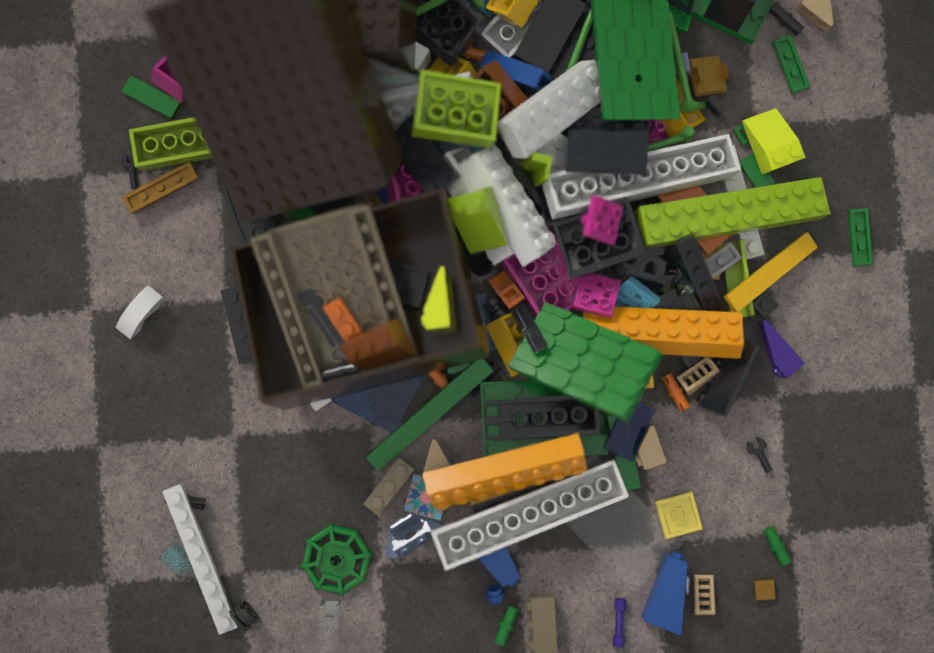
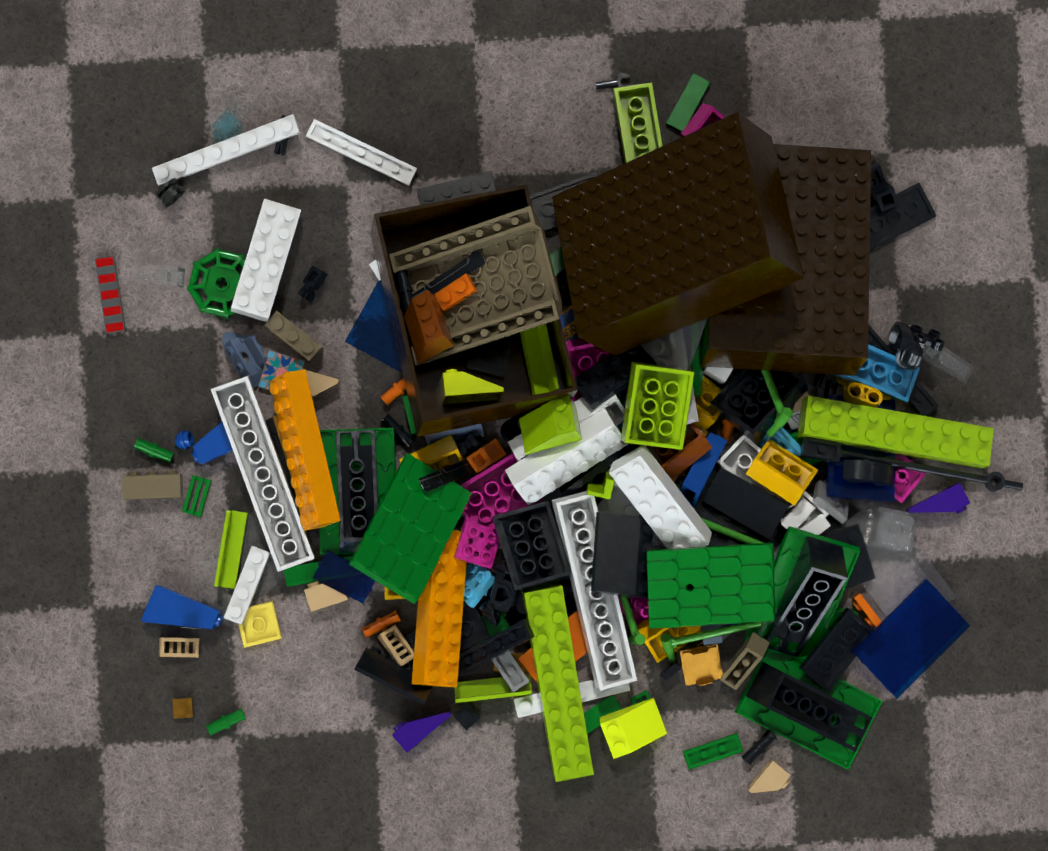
camera: 85 degrees right, 0 degrees up
(138, 310) = (470, 90): white brick -> none
(160, 187) = (595, 112): pearl gold plate -> none
(202, 421) = (361, 152): none -> white plate
(312, 516) = (265, 260): none -> white brick
(332, 467) = (312, 281): none -> black plate
(412, 234) = (539, 360): none -> lime panel
(429, 413) = (363, 376): green tile -> none
(554, 589) = (189, 493): none -> green tile
(602, 220) = (547, 543): dark pink plate -> none
(604, 544) = (231, 549): none -> lime panel
(618, 639) = (138, 561): dark purple bar -> none
(641, 527) = (247, 585): none -> white plate
(682, 283) = (488, 630): black sticker -> none
(705, 29) = (744, 661): none -> dark tan brick
(760, 453) = (317, 708): black bar -> none
(770, 272) = (498, 721): yellow tile -> none
(860, 237) = (534, 816): green tile -> none

